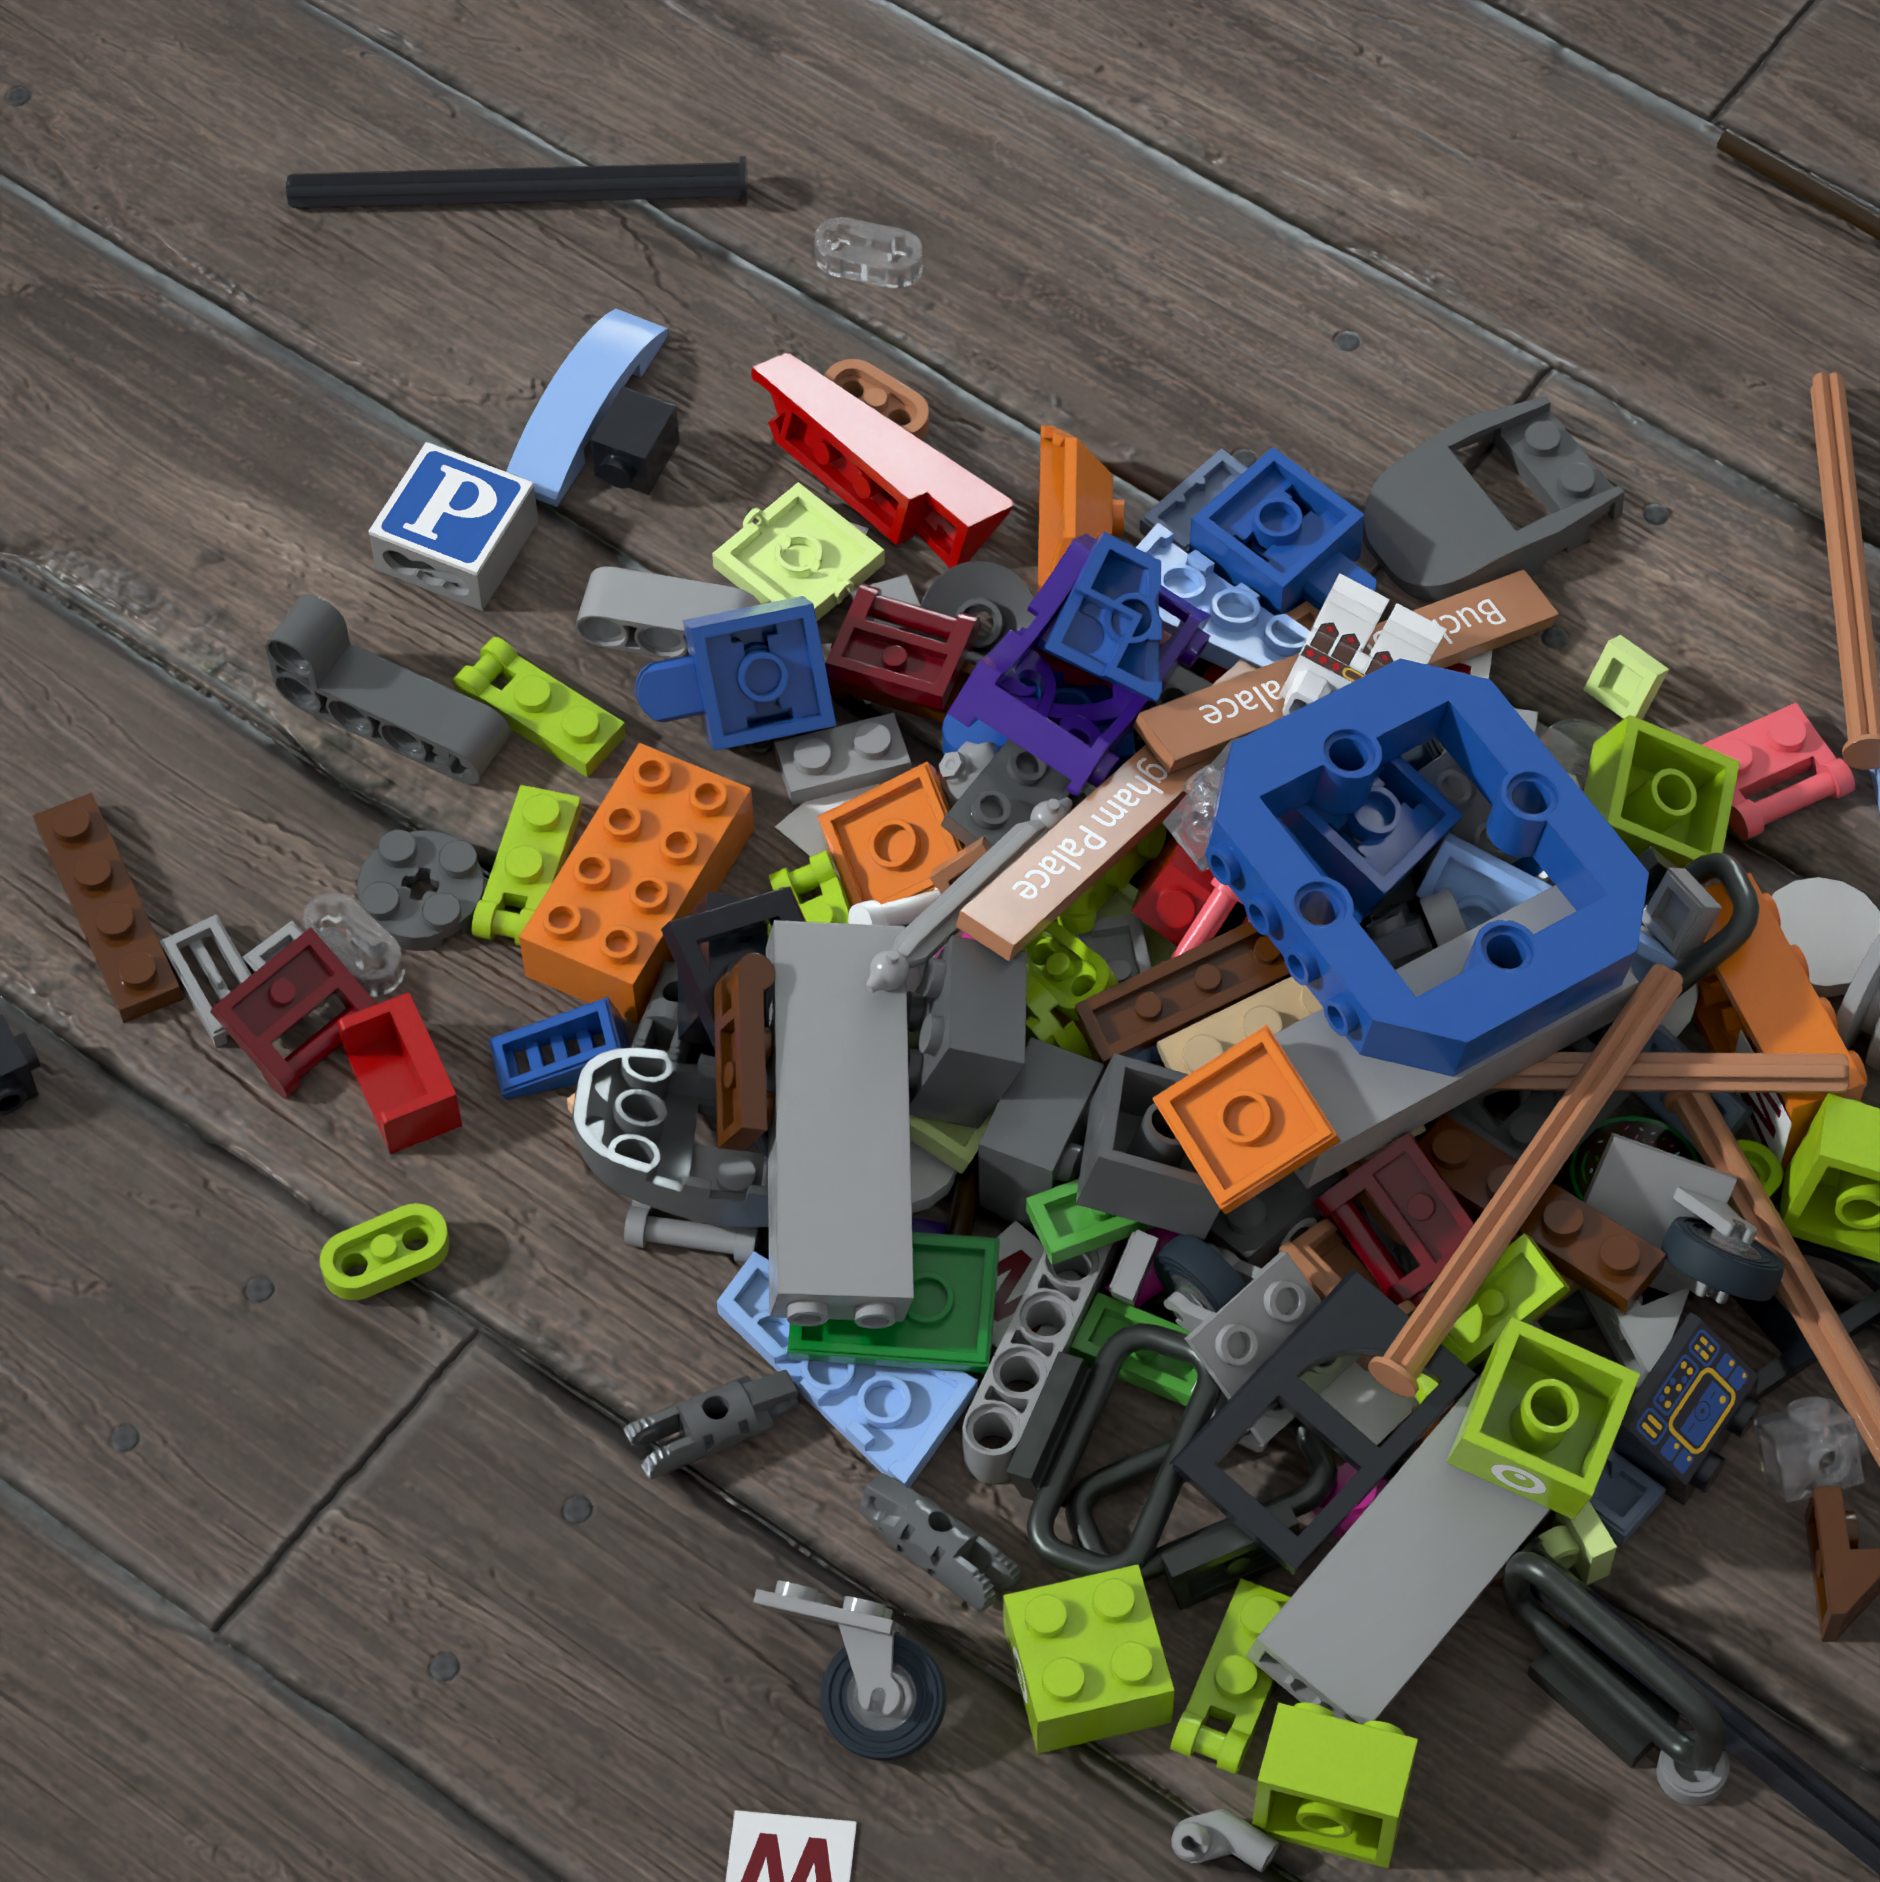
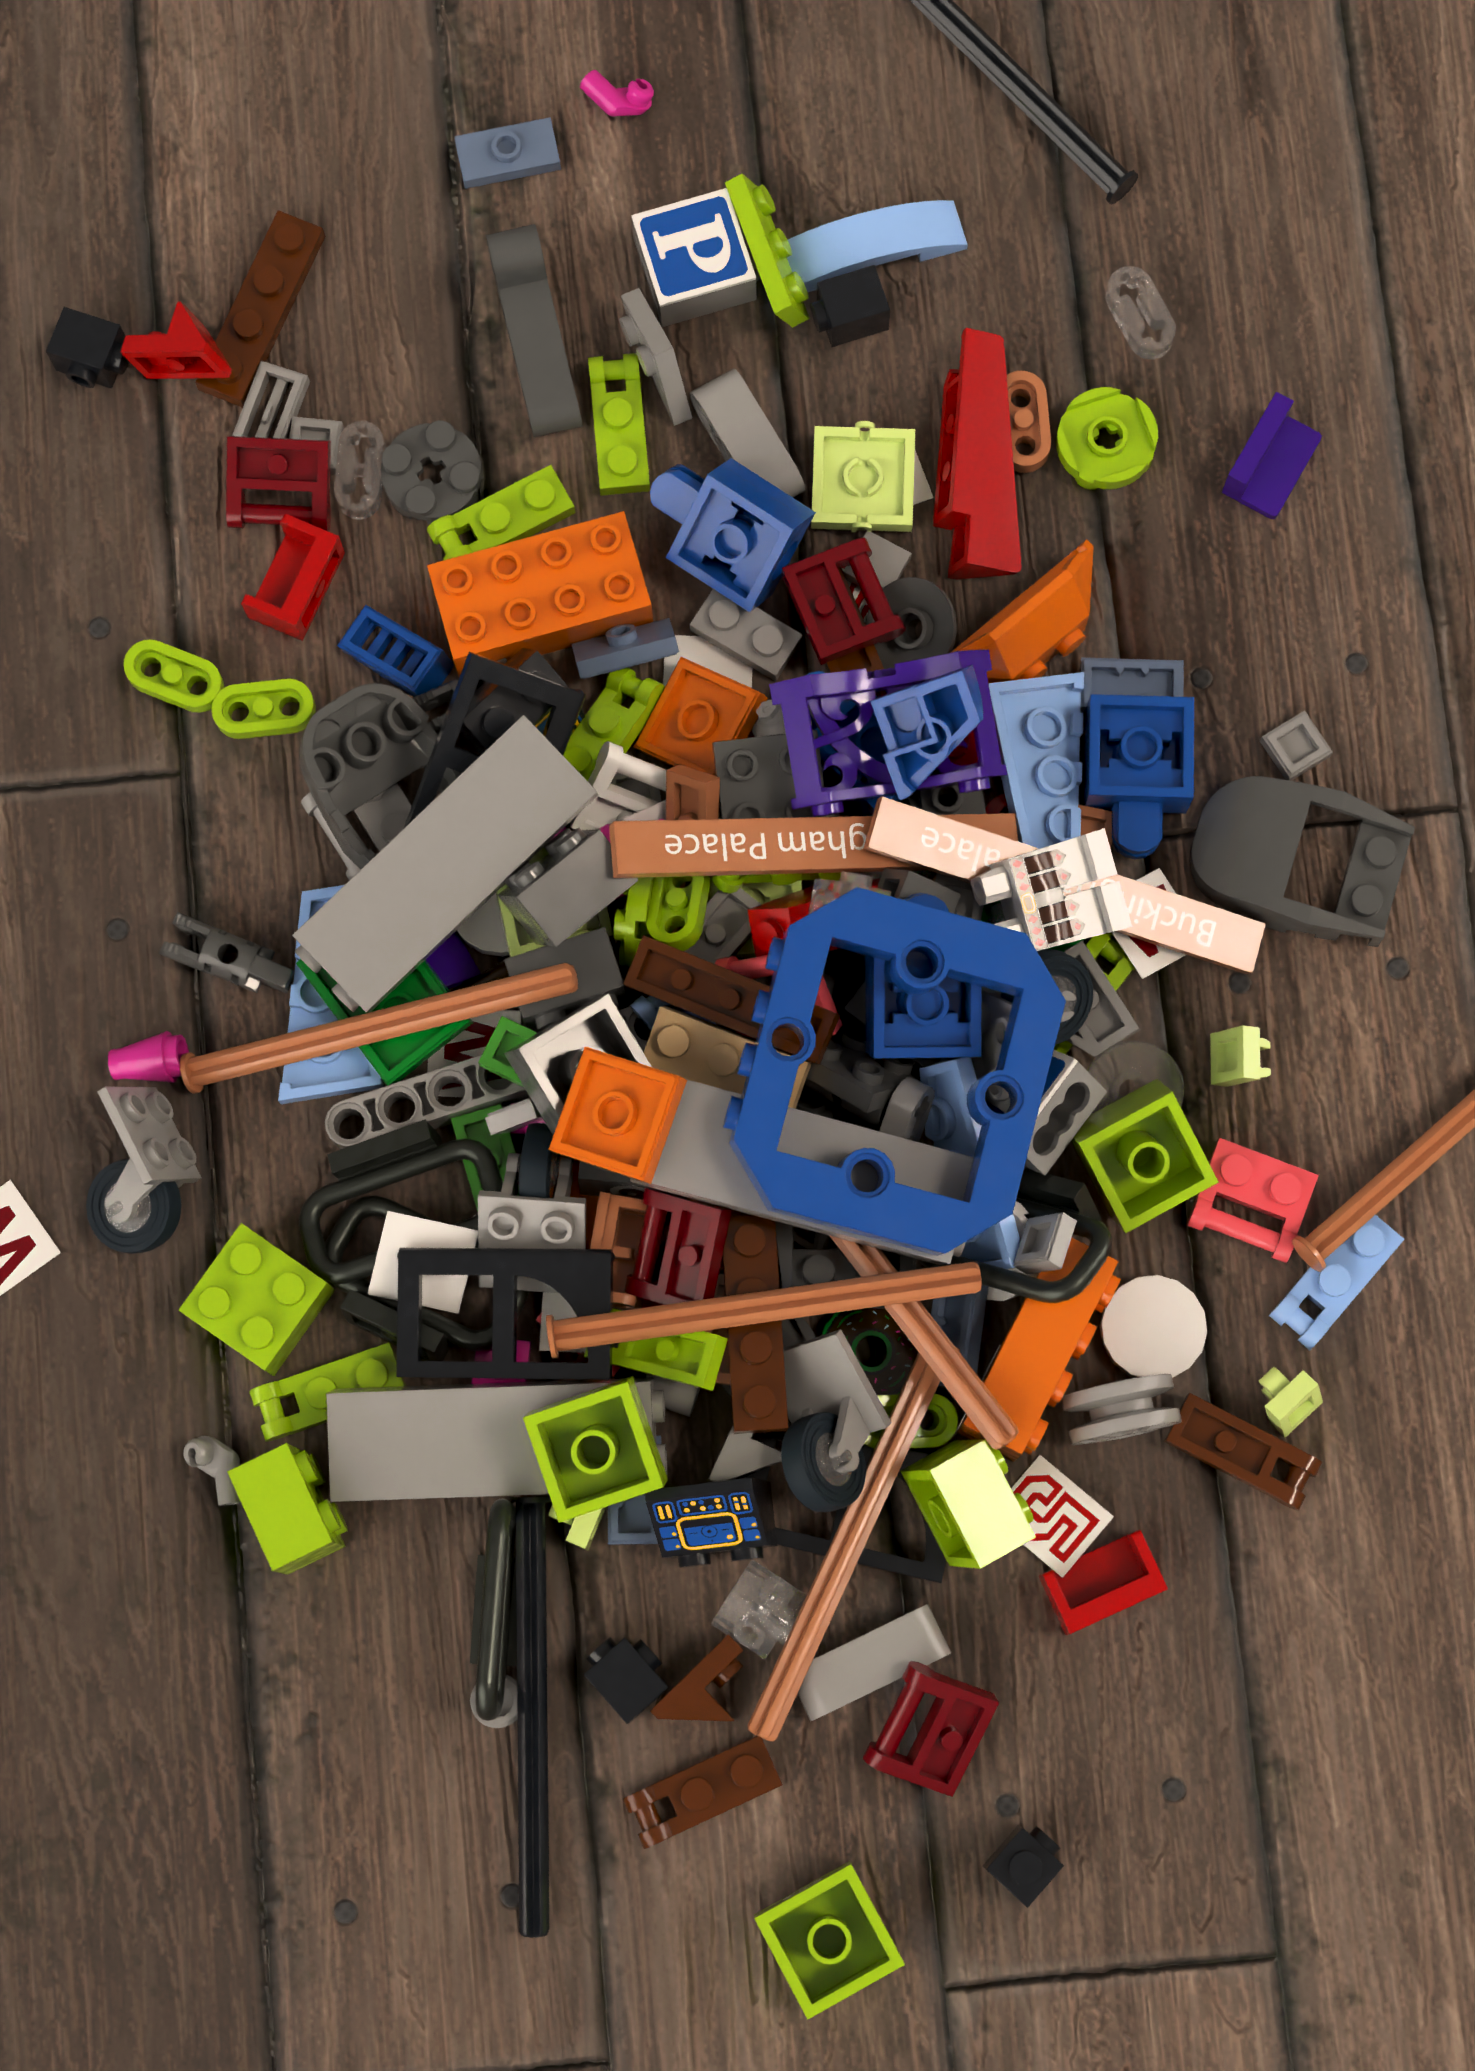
camera: 50 degrees right, 20 degrees up
(91, 983) = (180, 354): none -> red slope
(187, 599) = (507, 152): none -> sand blue plate
(237, 481) = (618, 101): none -> dark pink arm
(496, 1203) = (265, 708): none -> lime plate
(517, 612) = (655, 354): none -> light grey wing
(563, 475) = (769, 249): none -> lime plate
(742, 1053) = (429, 773): reddish brown plate -> none
(750, 1562) = (149, 1059): none -> dark pink cone
(764, 848) = (625, 647): none -> sand blue plate
(927, 1317) = (377, 1026): none -> nougat axle
(938, 921) = (604, 809): light grey wheel -> none
(938, 1542) = (265, 1126): dark grey hinge -> none
(964, 385) = (1118, 413): none -> lime plate
(1101, 259) = (1272, 460): none -> dark purple panel
(1181, 1504) = (407, 1231): none -> white sticker
(1379, 433) = (1296, 746): none -> light grey tile
(1775, 1624) = (626, 1676): none -> black brick

